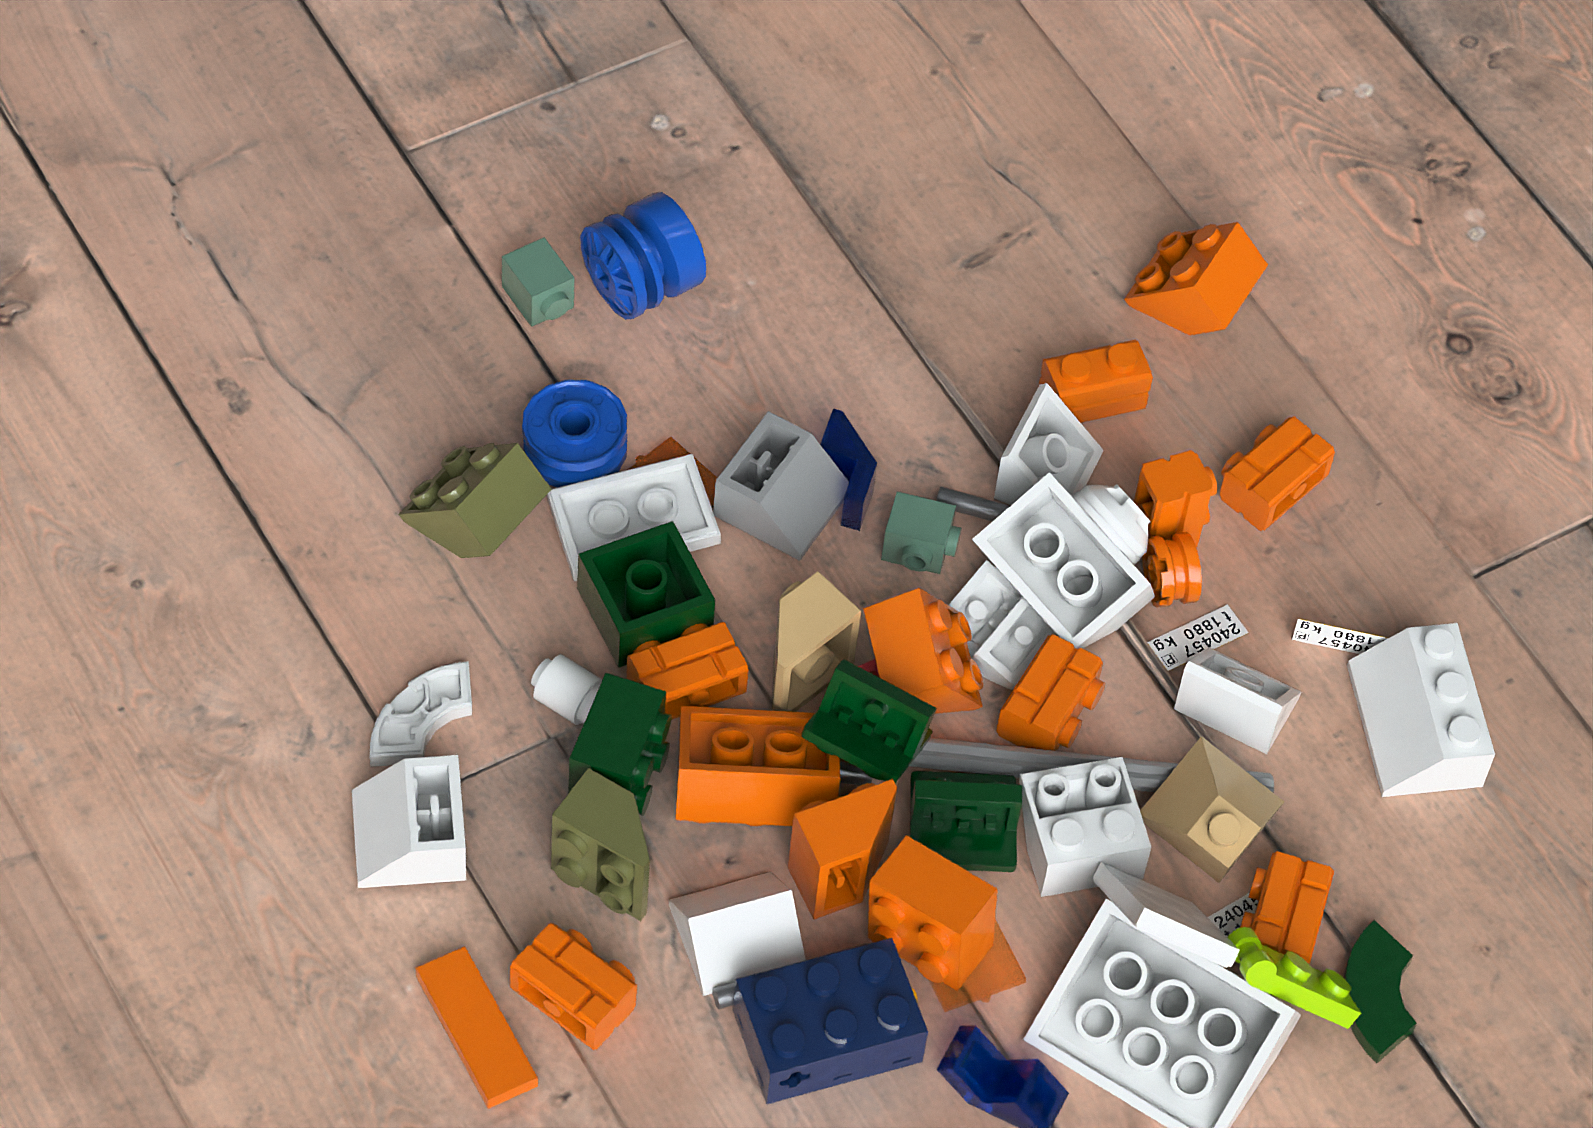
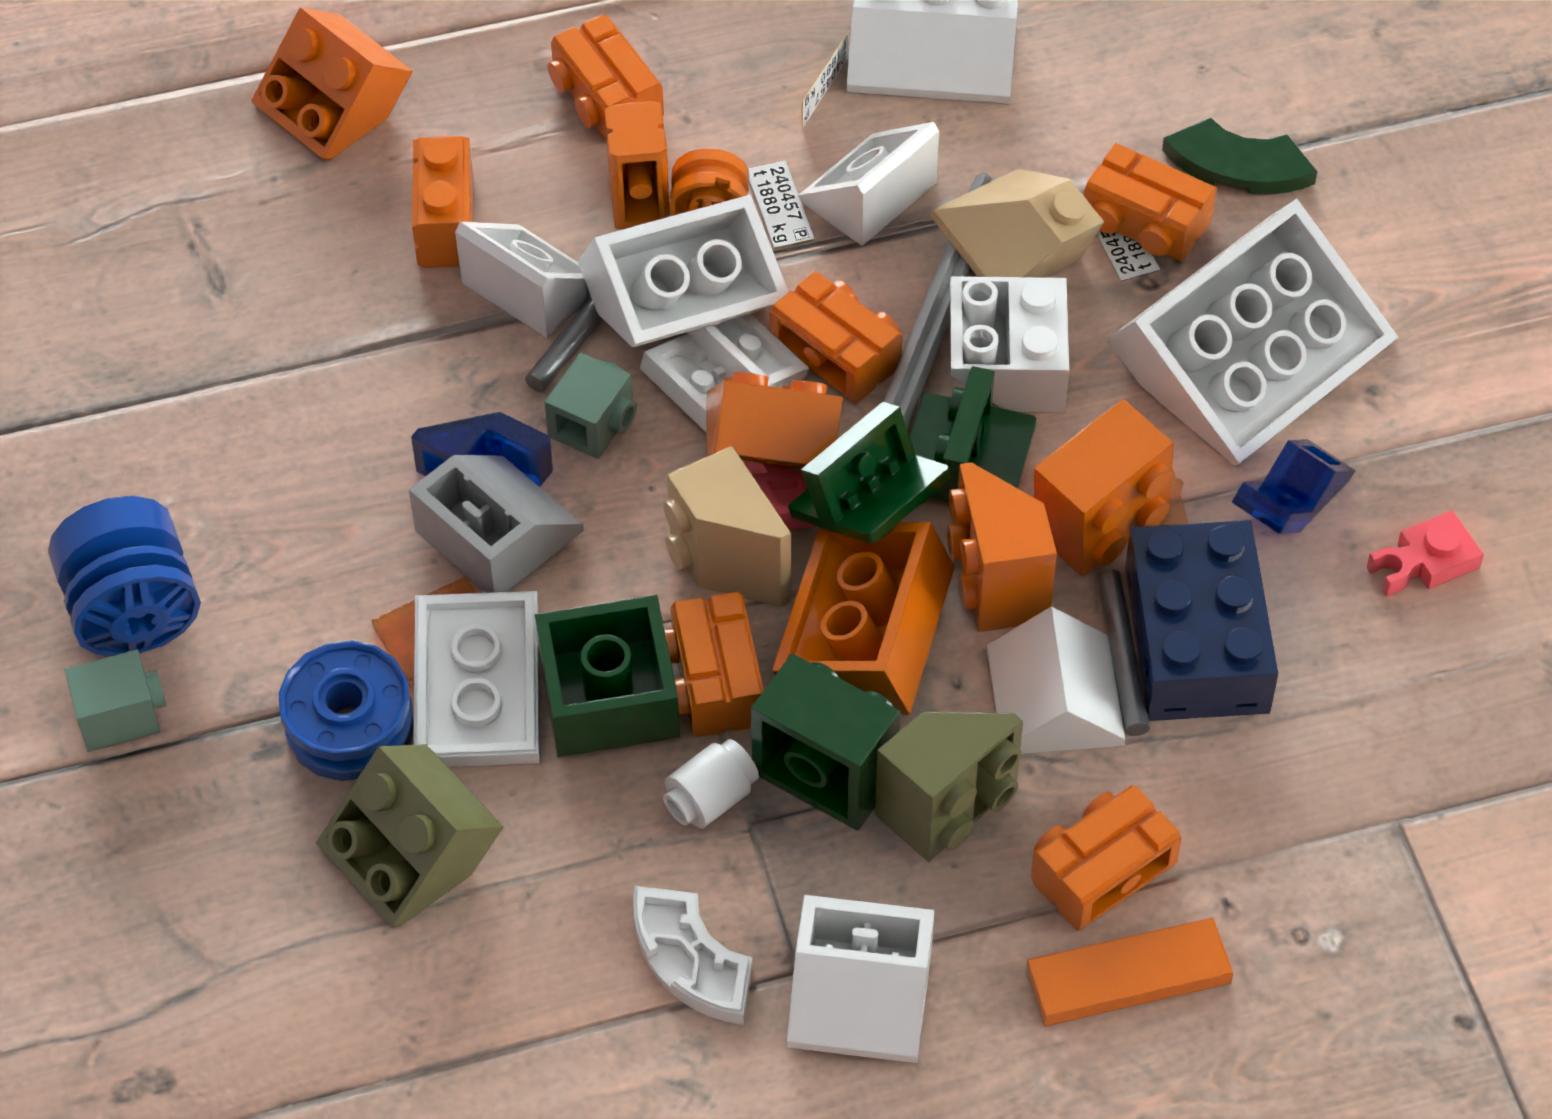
camera: 70 degrees left, 0 degrees up
(1116, 517) = (652, 200): white piece -> none
(1165, 915) = (1161, 279): white tile -> none
(1294, 979) = (1244, 198): lime plate -> none

